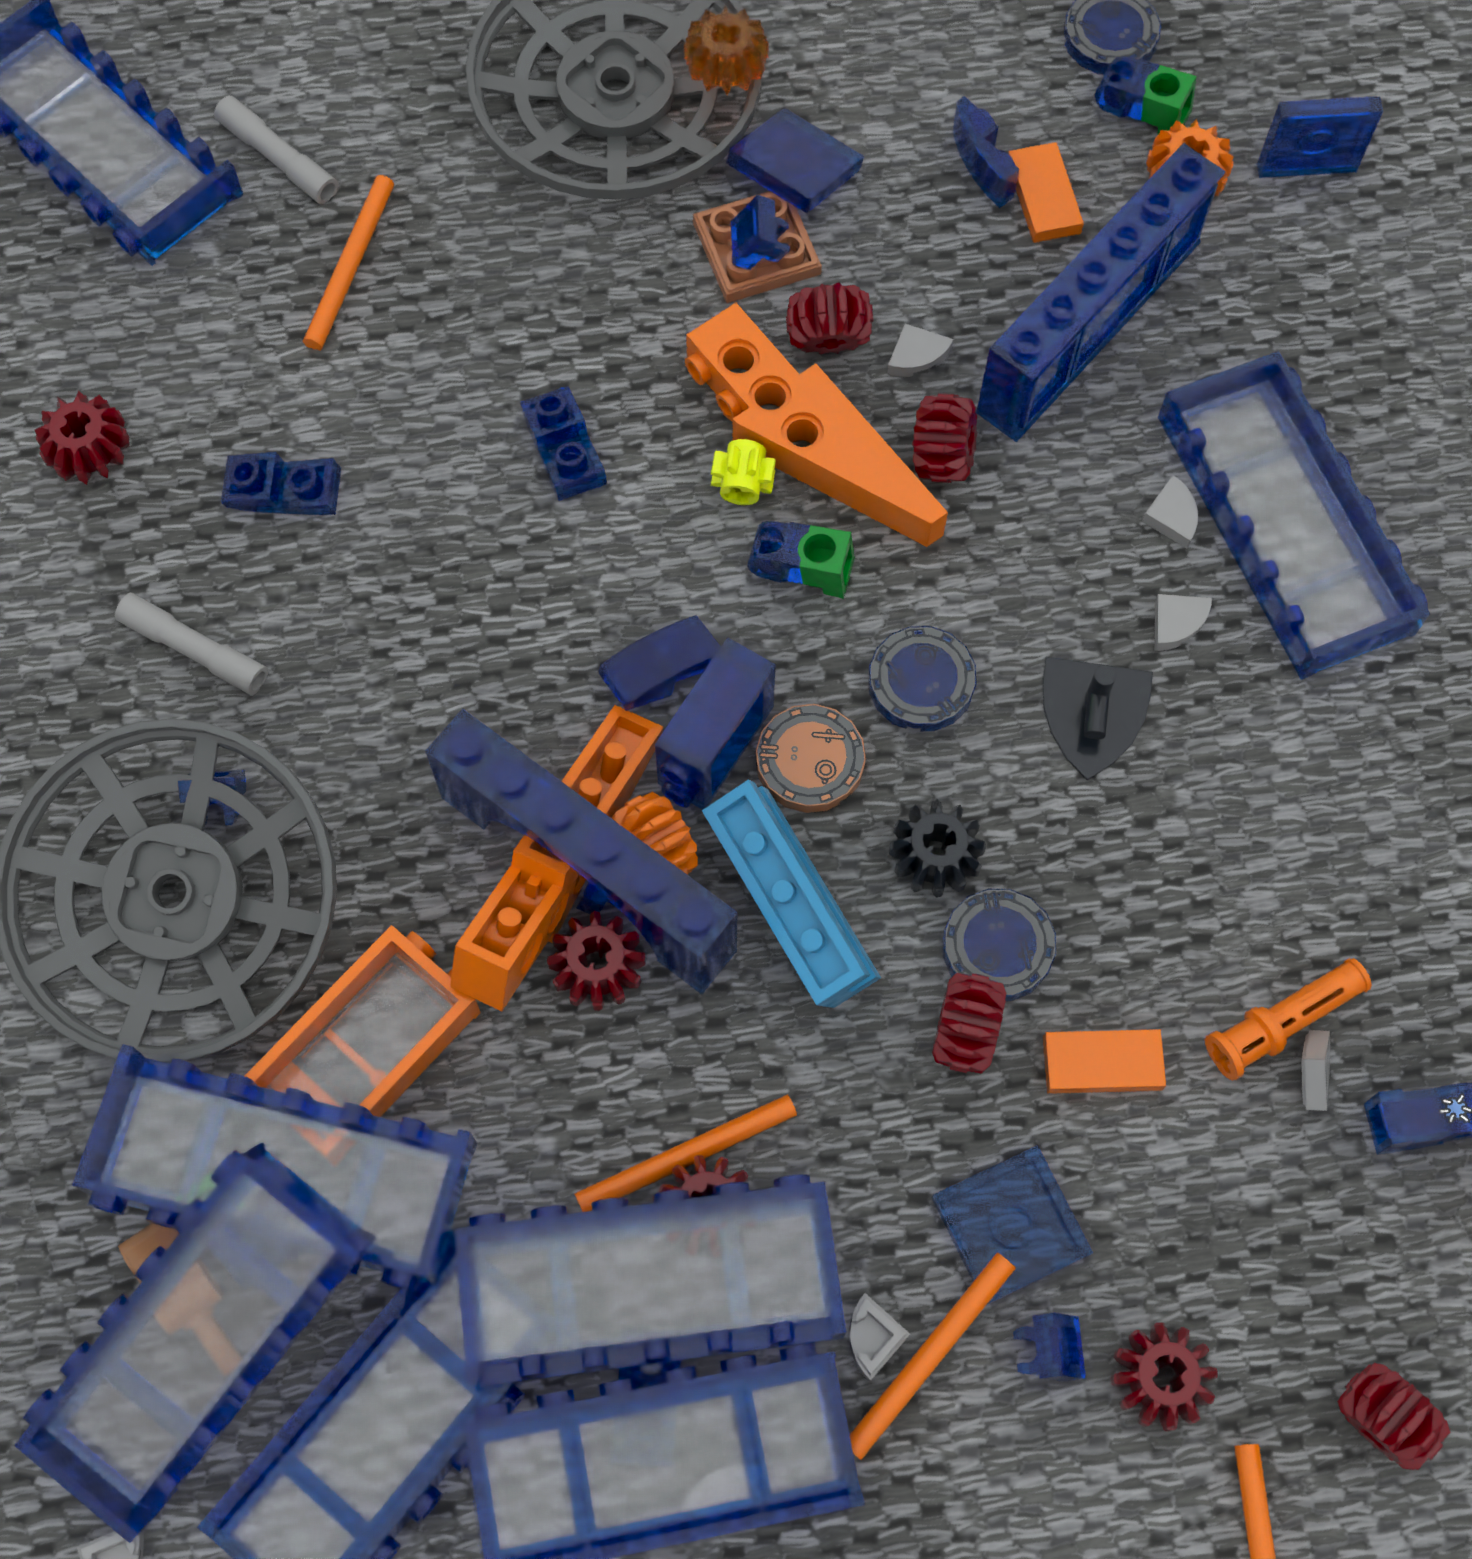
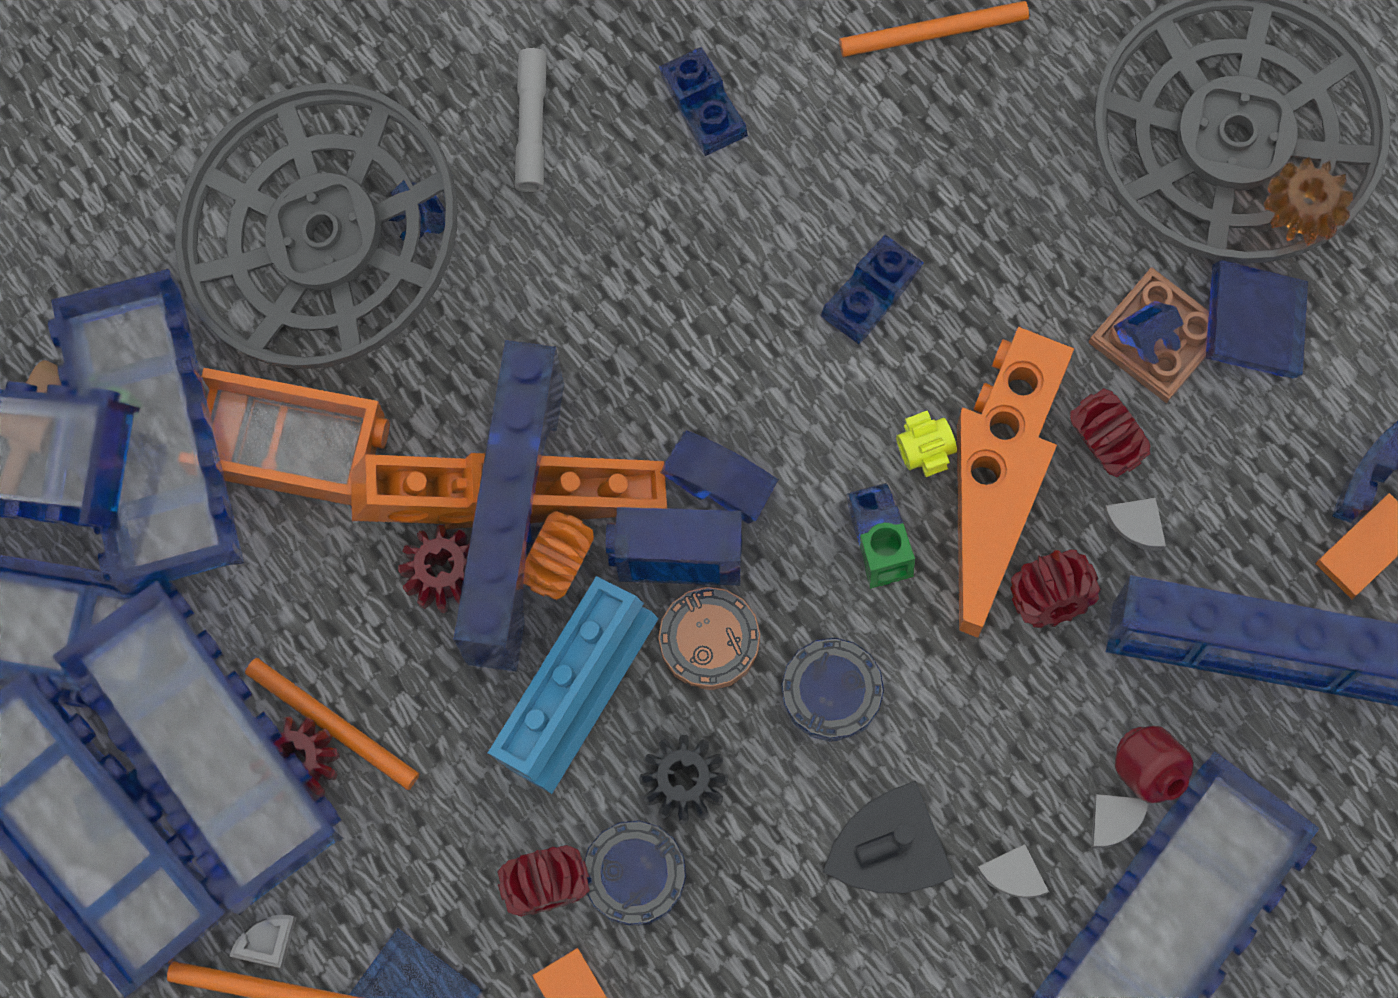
camera: 65 degrees right, 5 degrees up
(1147, 449) = (1153, 764): none -> dark red head

